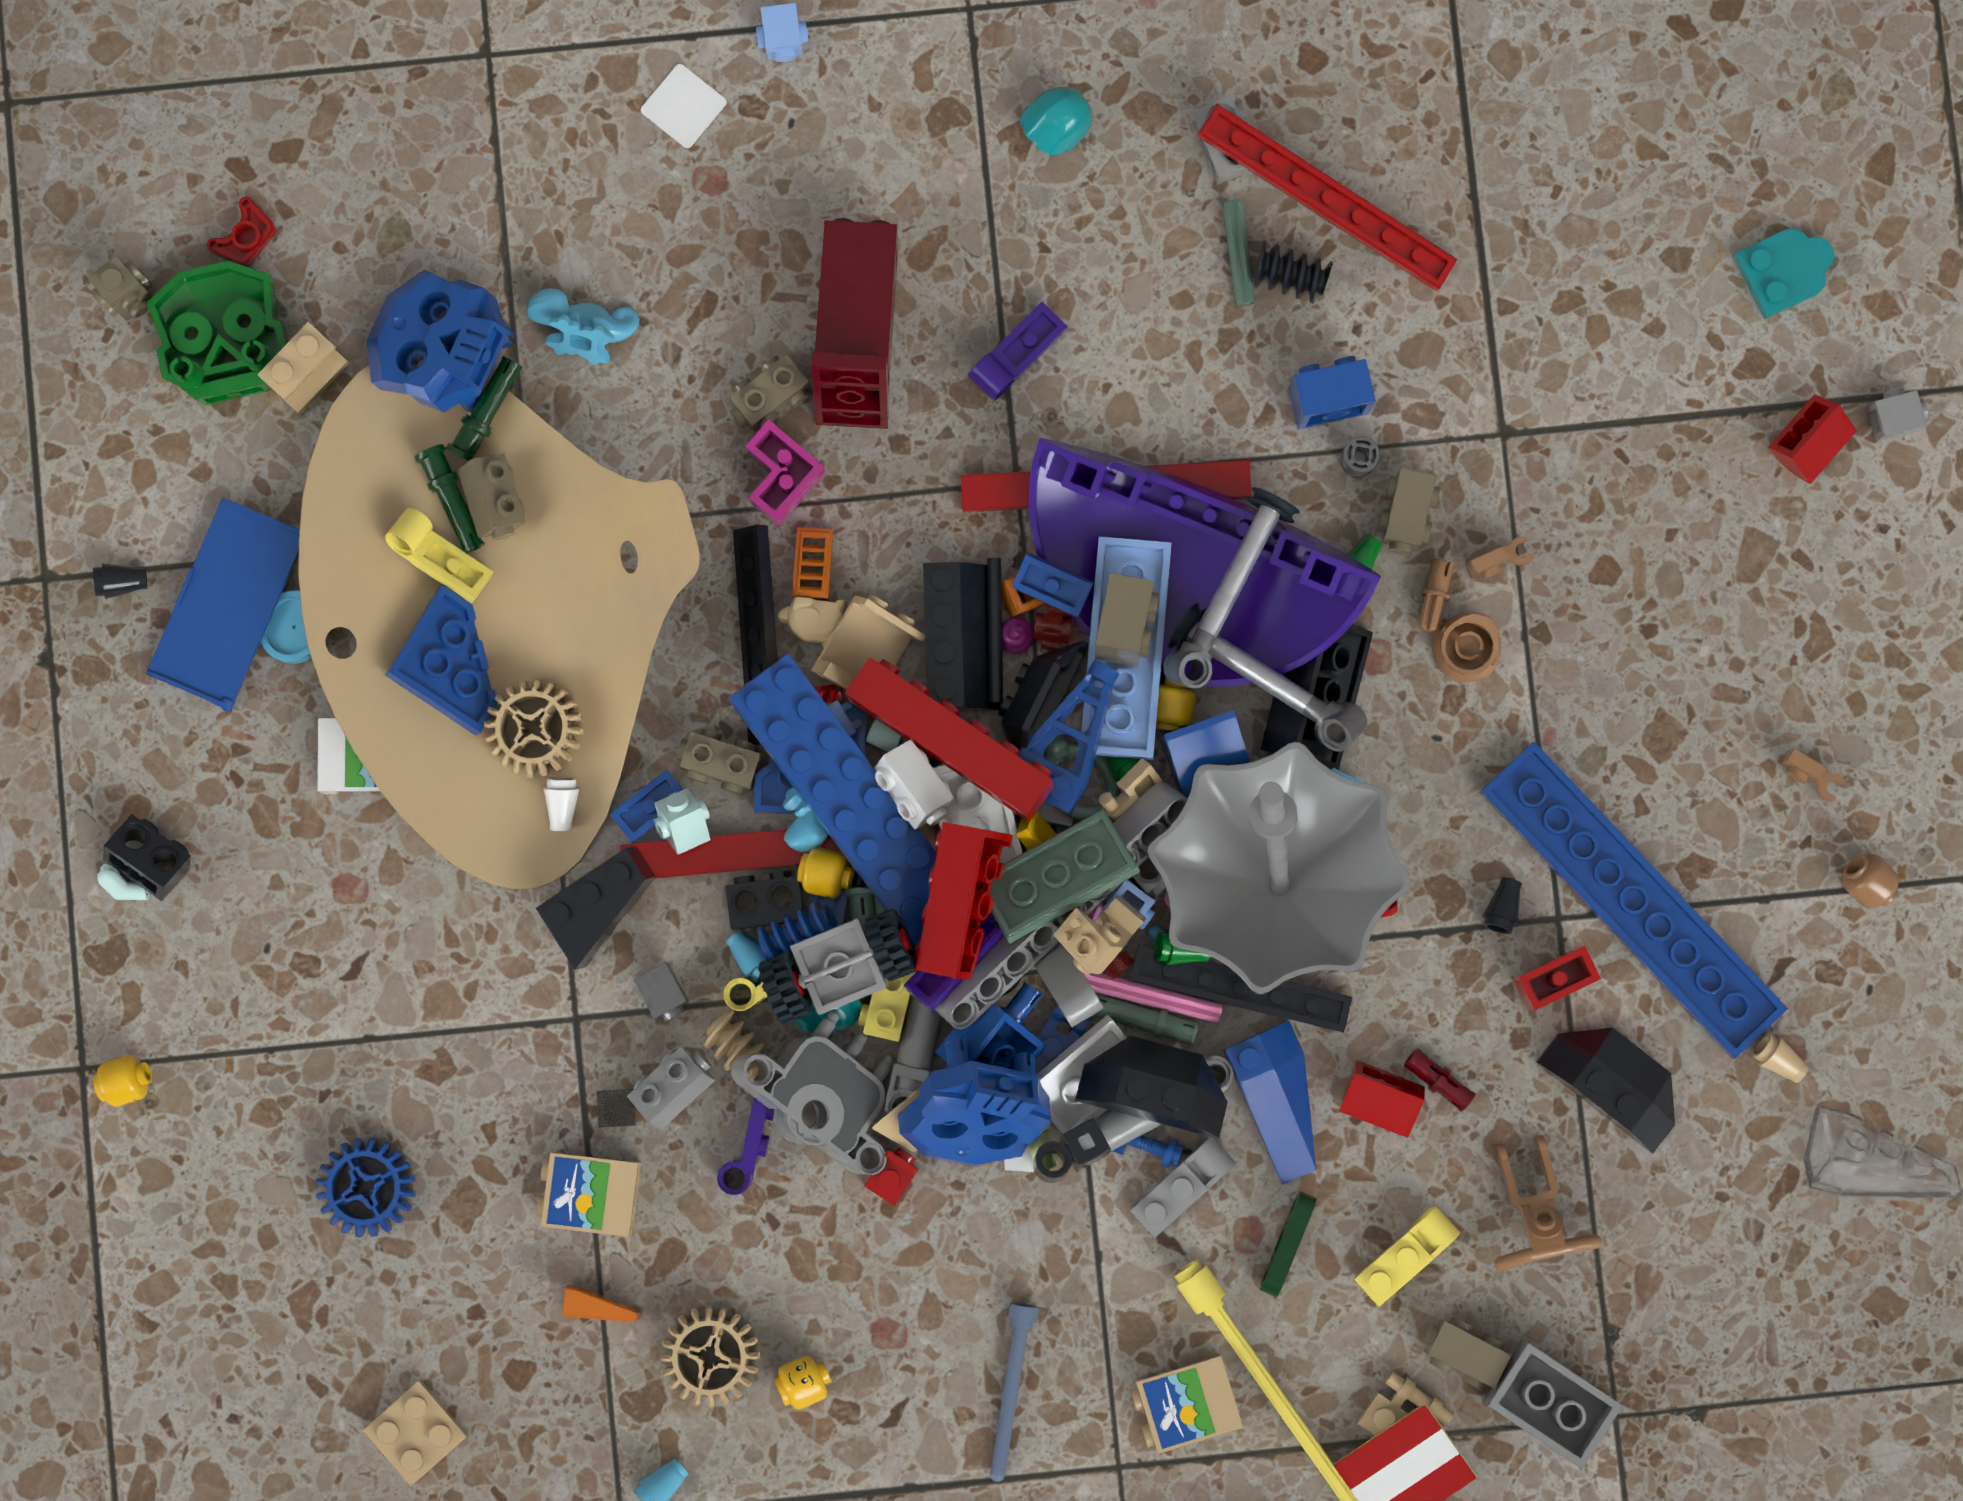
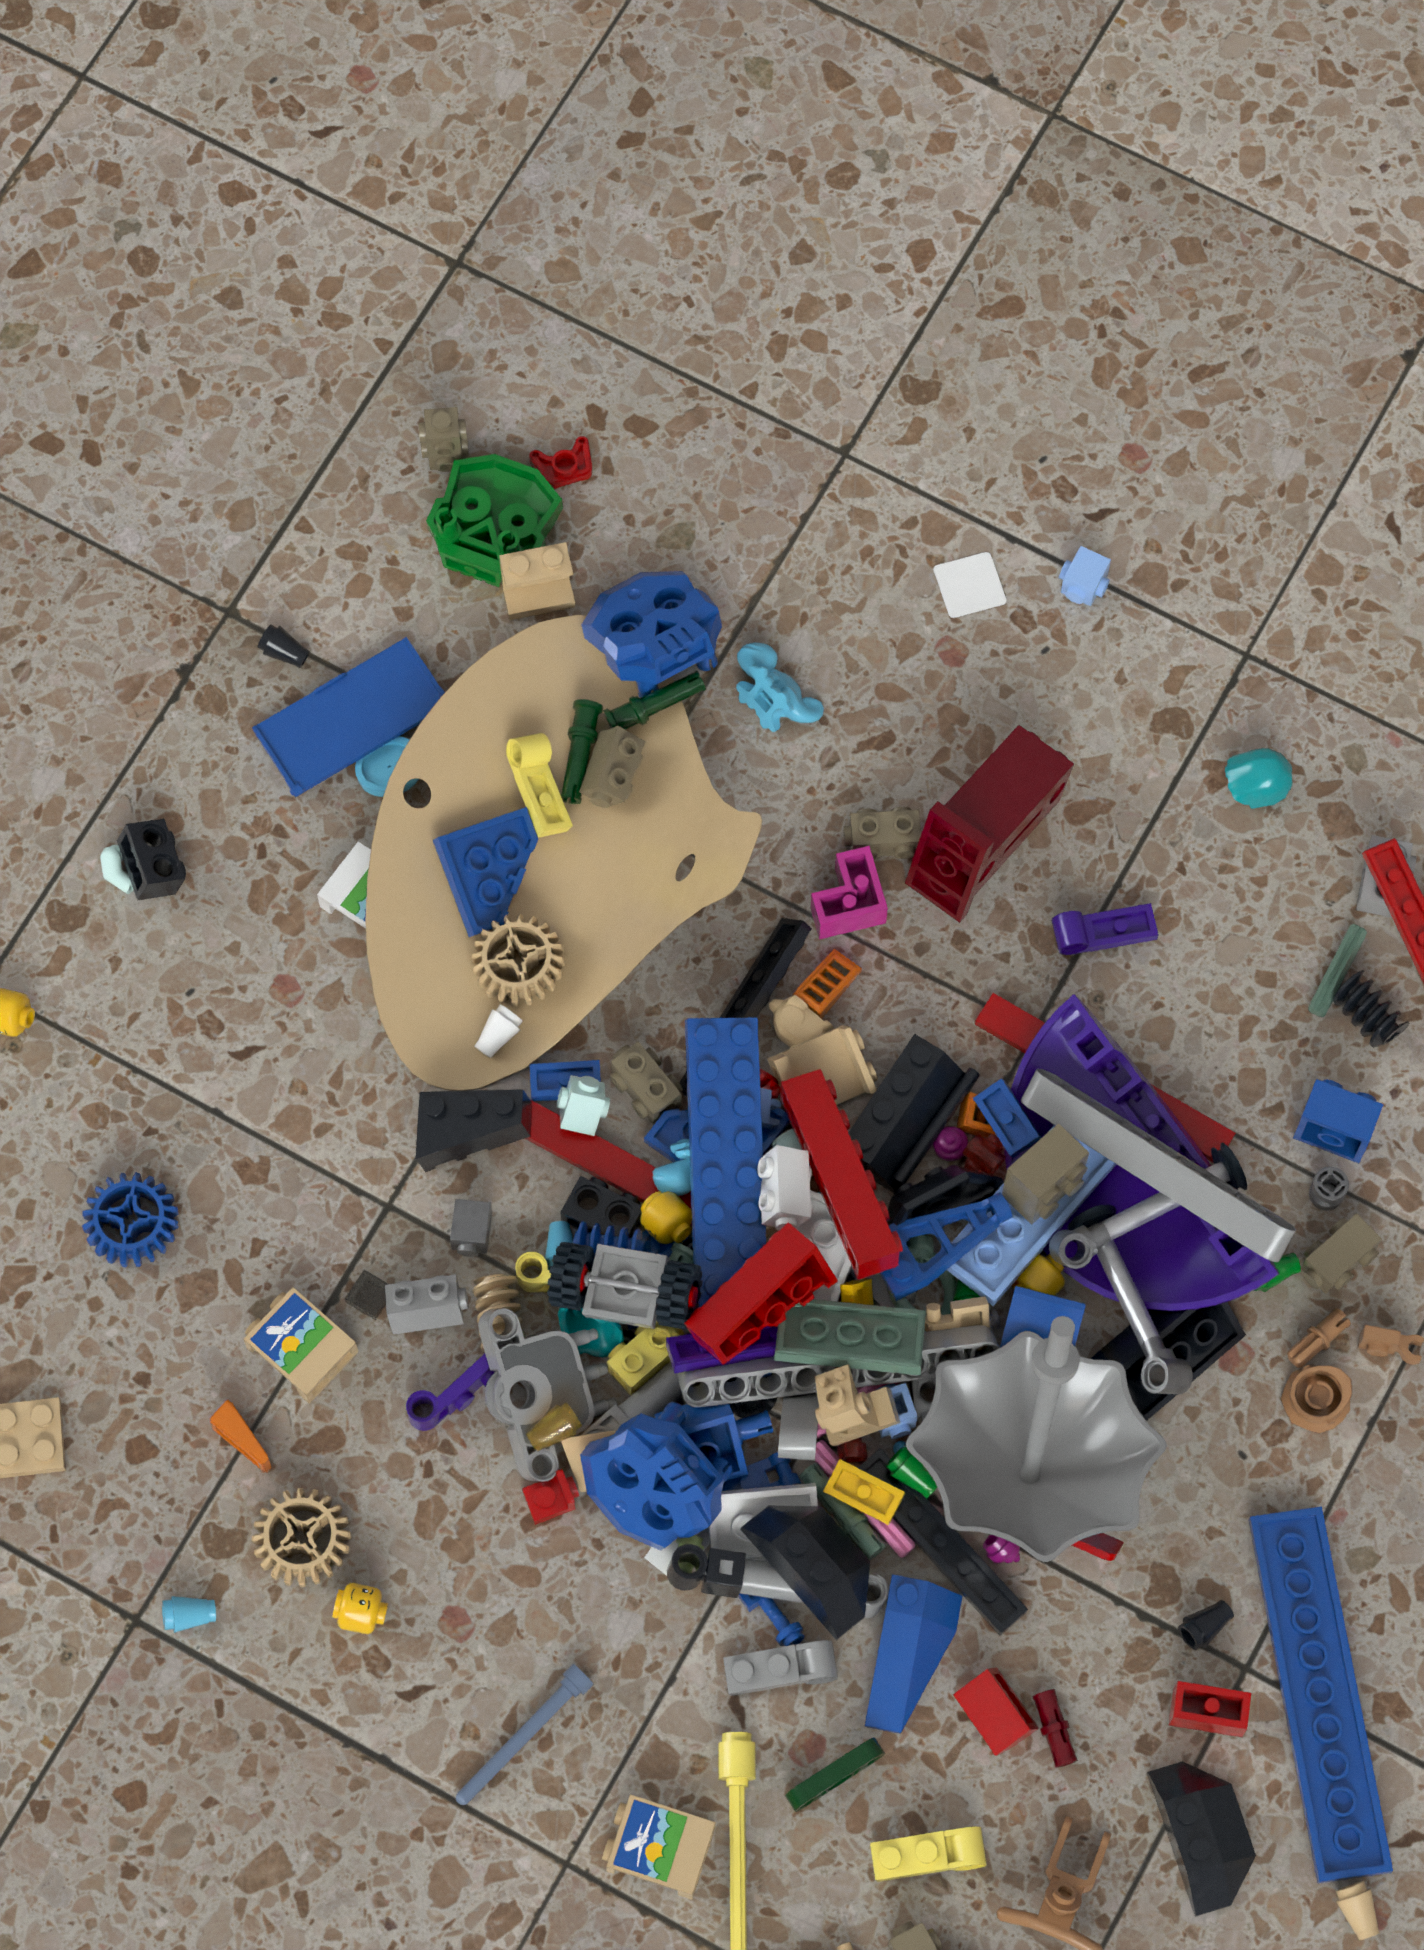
camera: 35 degrees right, 15 degrees down
(860, 1124) = (554, 1427): none -> clear yellow cone
(1153, 994) = (864, 1492): none -> yellow plate
(1215, 548) = (1159, 1165): none -> light grey beam

